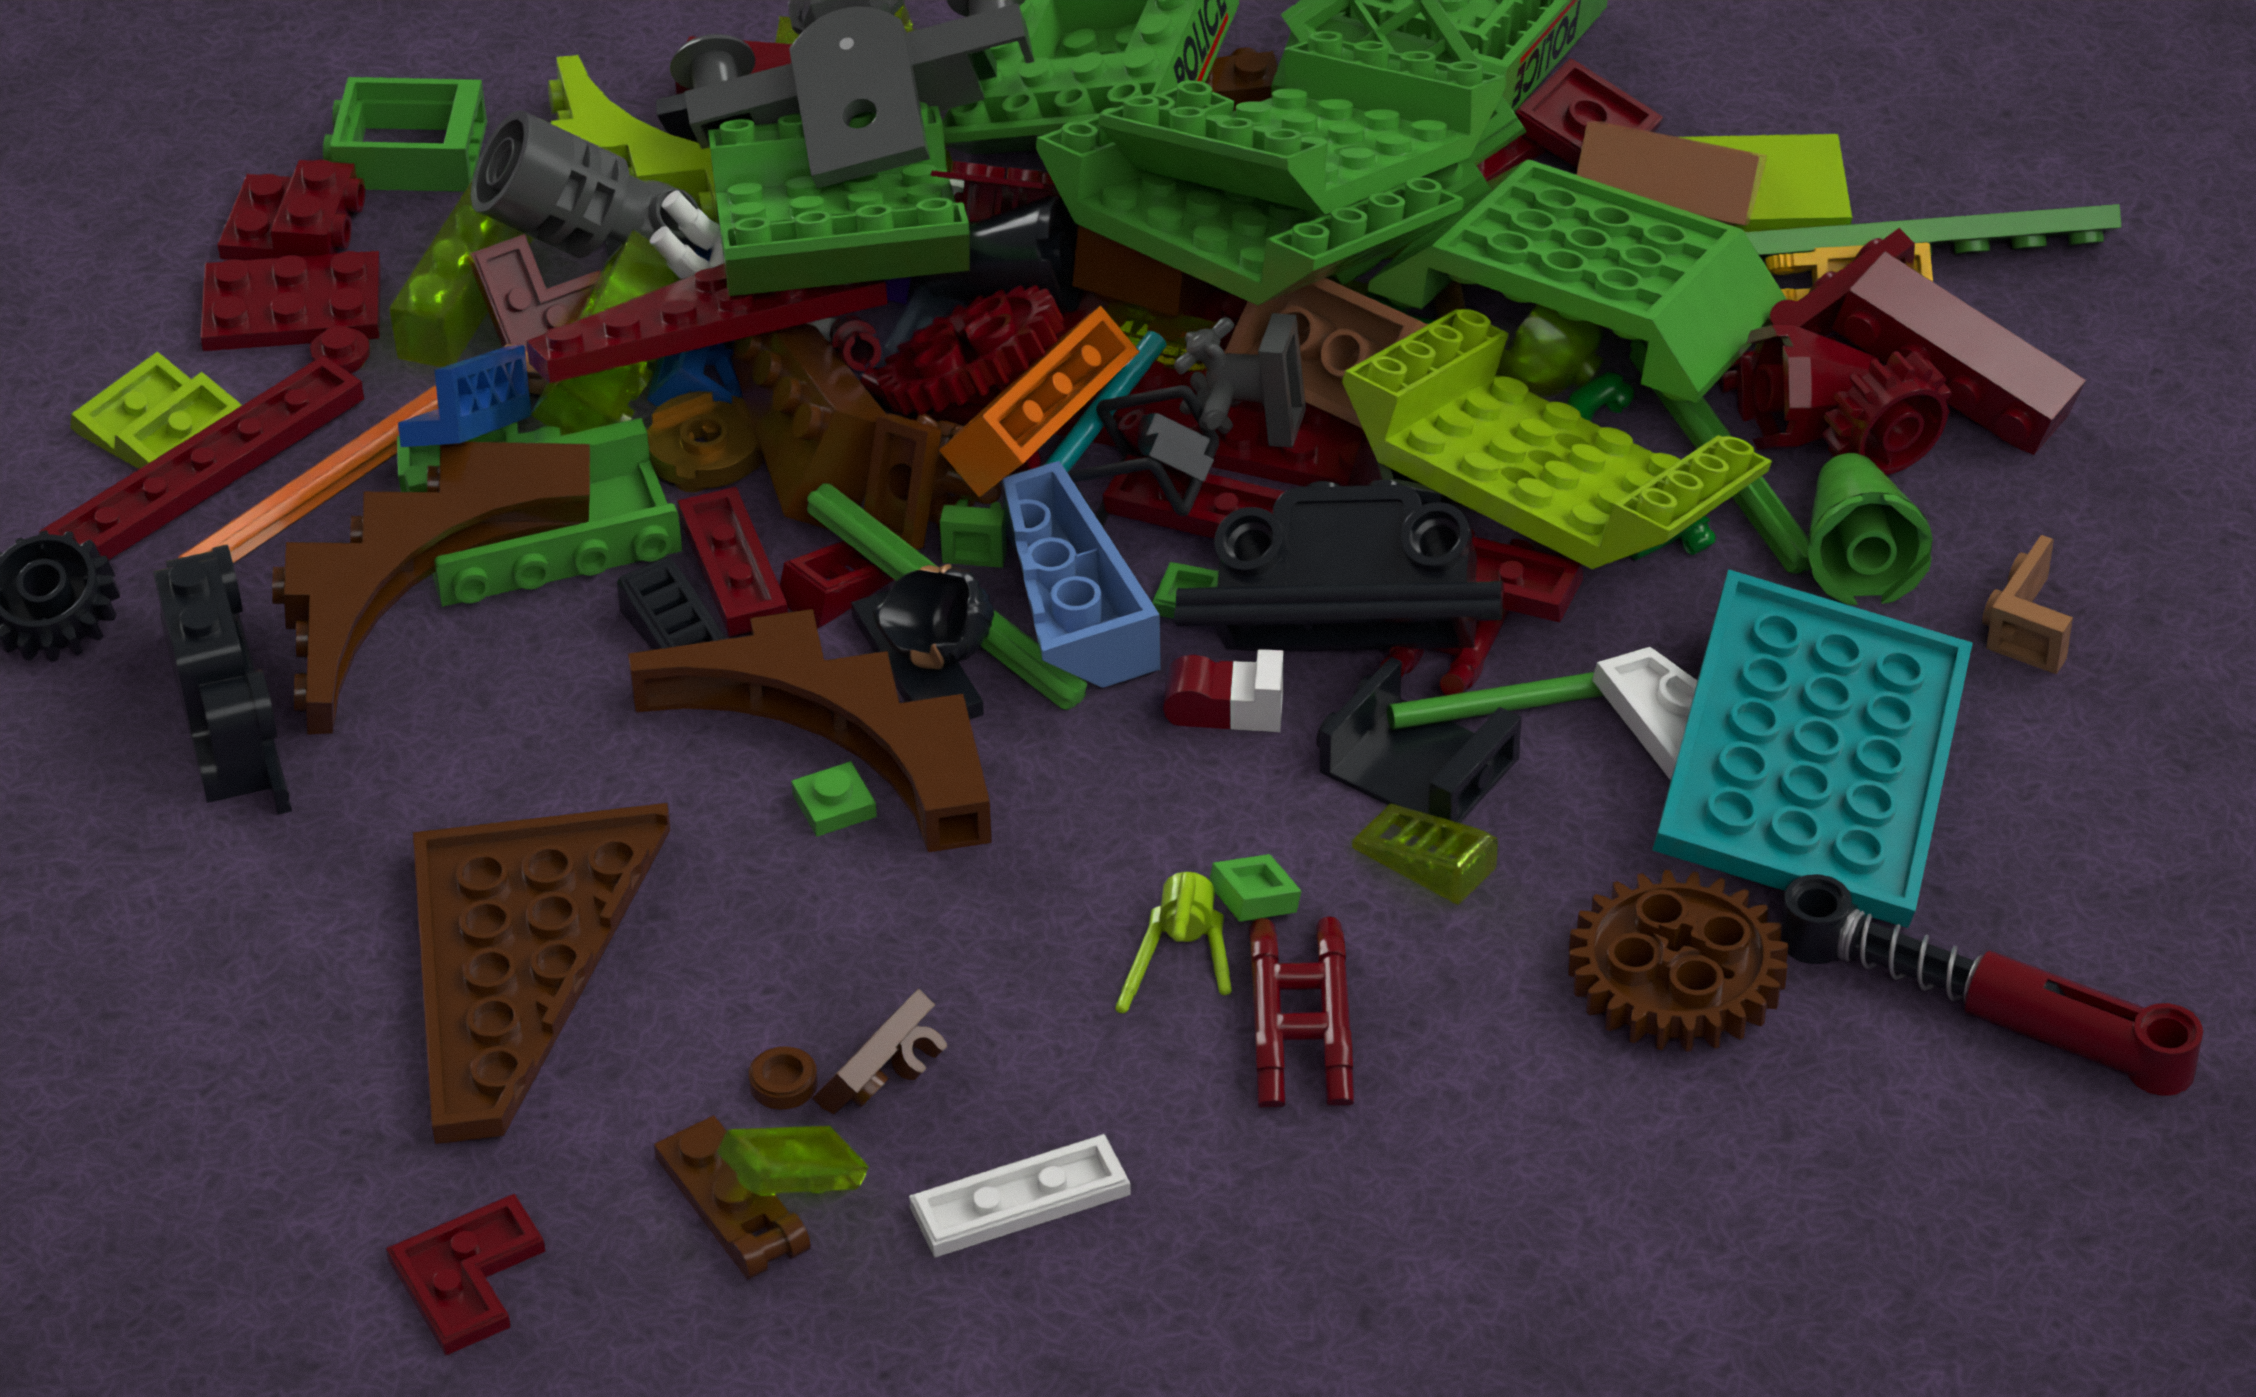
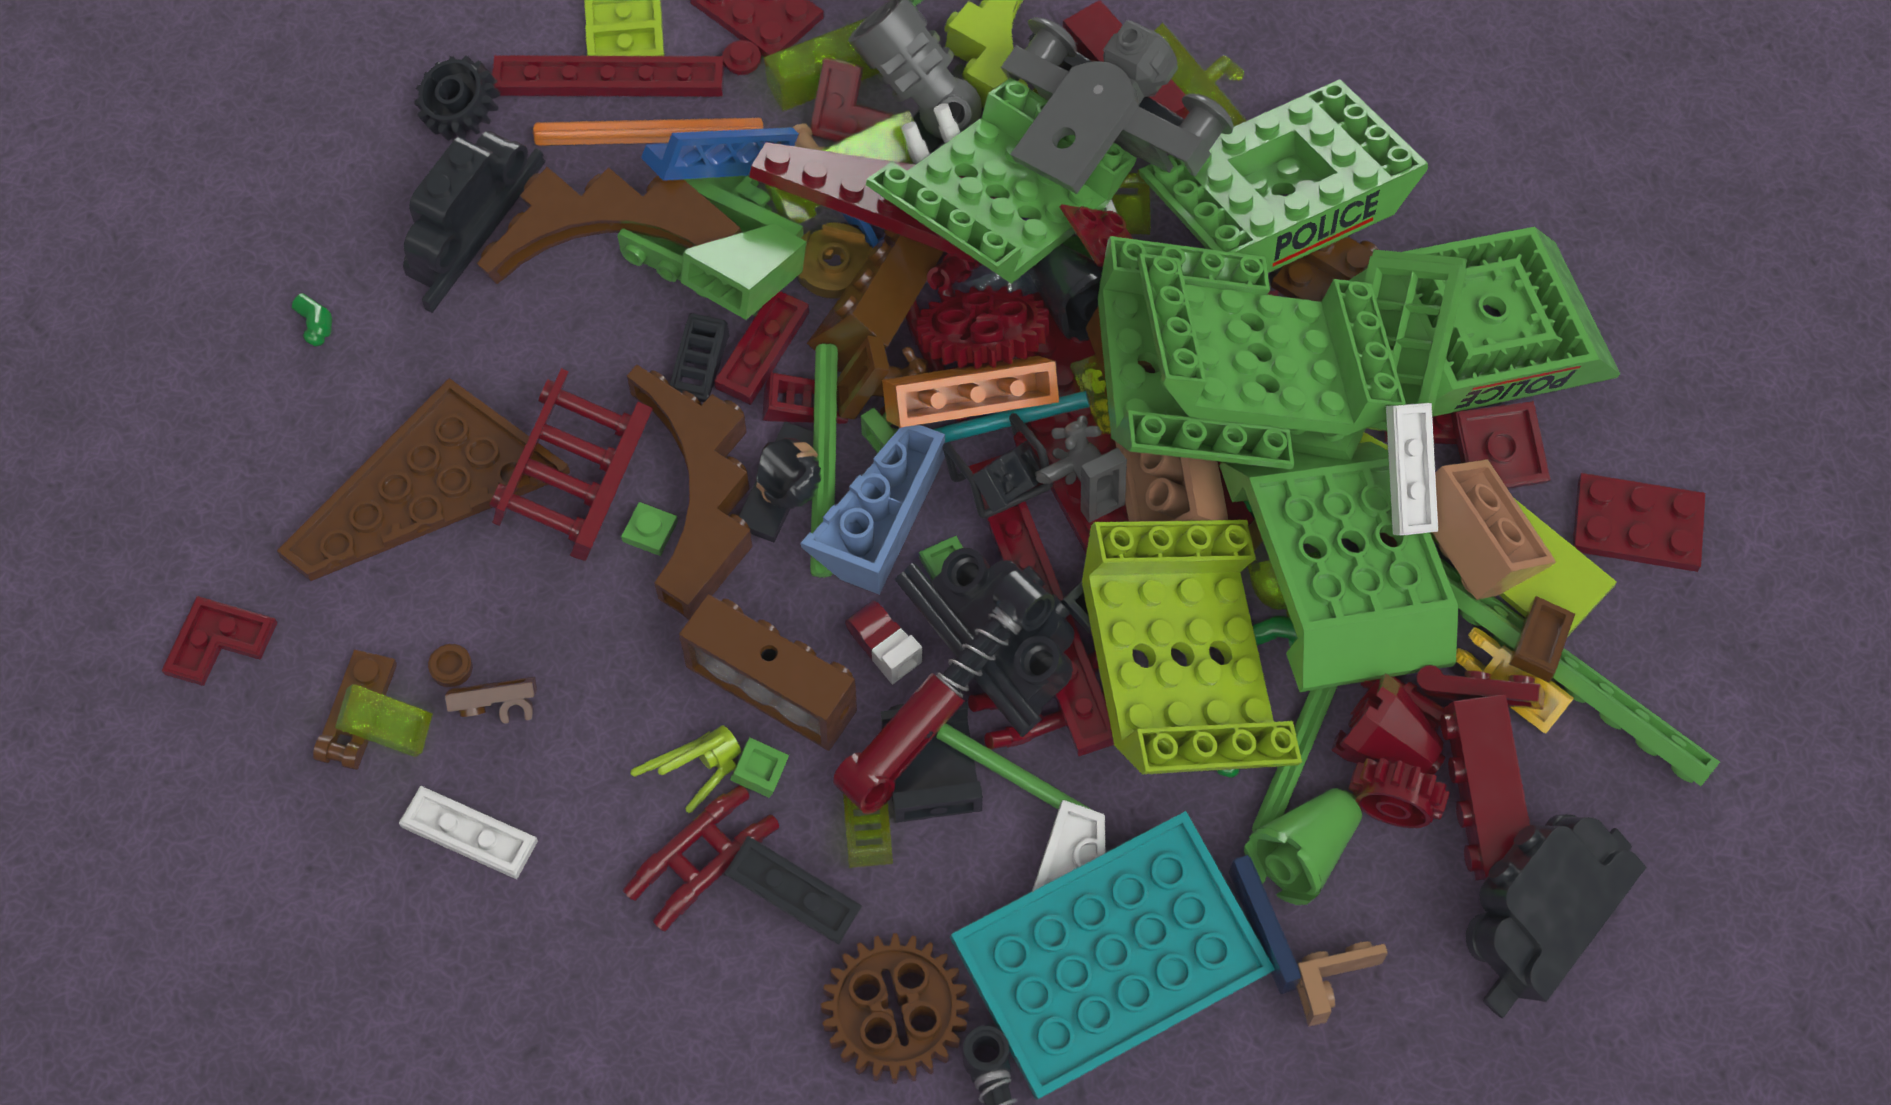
camera: 45 degrees right, 20 degrees up
(154, 906) = (317, 319): none -> green arm
(638, 481) = (744, 268): none -> bright green slope
(715, 758) = (597, 495): none -> dark red fence
(1160, 786) = (769, 671): none -> reddish brown brick
(1385, 780) = (870, 775): none -> piece
(1439, 951) = (793, 890): none -> black tile
(1570, 132) = (1412, 468): none -> white tile
(1783, 91) = (1639, 522): none -> dark red plate
(1841, 211) = (1542, 639): none -> reddish brown tile
(1954, 618) = (1265, 923): none -> dark blue tile
(2138, 396) = (1548, 904): none -> black brick

